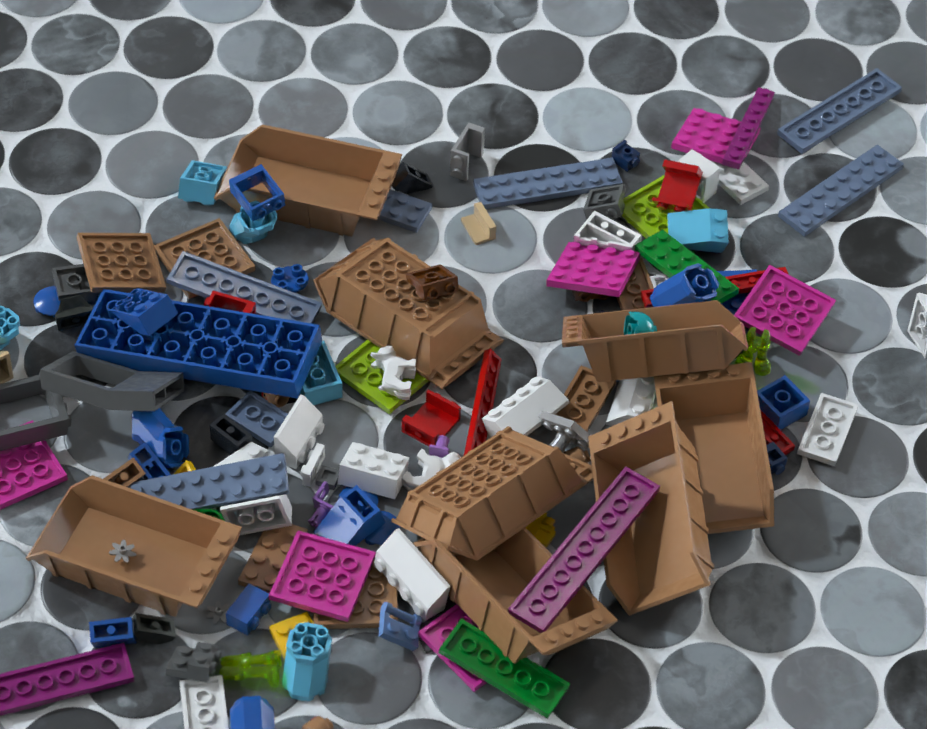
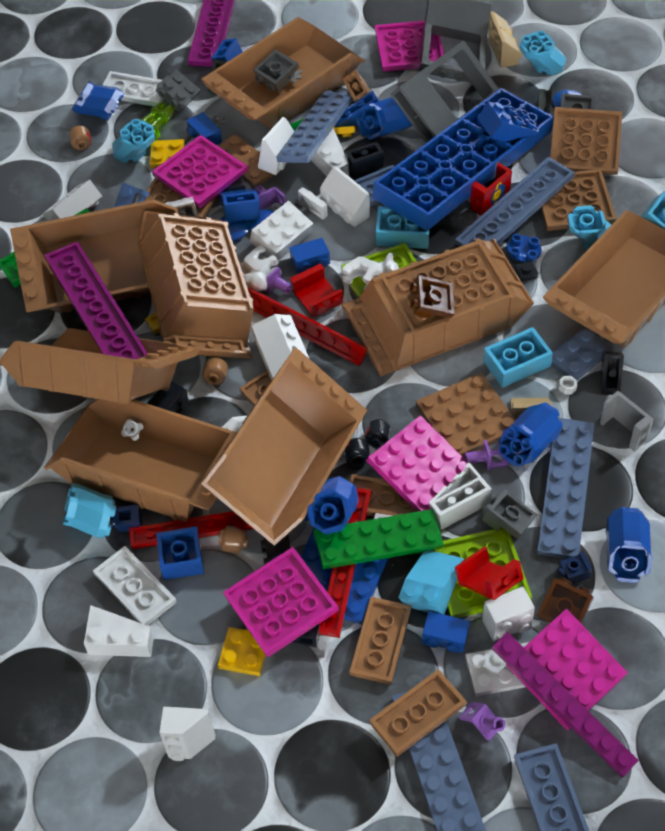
camera: 120 degrees right, 5 degrees up
(131, 558) = (275, 71): none -> dark grey plate
(250, 179) = (601, 205): blue window -> none
(315, 269) = (526, 271): none -> black plate
(388, 438) = (309, 255): none -> blue brick
(425, 690) = (76, 200): none -> white slope
(435, 240) = (517, 357): none -> medium azure brick
(441, 206) = (567, 385): none -> white tile
(511, 266) = (467, 414): none -> medium nougat plate
(517, 208) = (530, 434): none -> blue brick
(551, 236) = (485, 455): none -> medium lavender bracket
(567, 431) = (233, 360): light grey plate -> none
(572, 309) = (377, 433): none -> black head
(587, 125) = (628, 544): none -> blue brick
(638, 323) = (311, 452): teal cylinder -> none
(657, 148) = (564, 596): none -> reddish brown plate
(736, 213) = (445, 632): none -> blue brick
(760, 252) = (380, 640): none -> medium nougat plate
(760, 345) = (249, 556): clear neon green piece -> none
(787, 172) = (483, 719): none -> medium lavender bracket
(789, 483) = (89, 510): none -> medium azure brick
(813, 204) = (417, 712): none -> medium nougat plate
(833, 337) = (241, 653): none -> yellow plate
(881, 419) = (116, 635): none -> white wedge

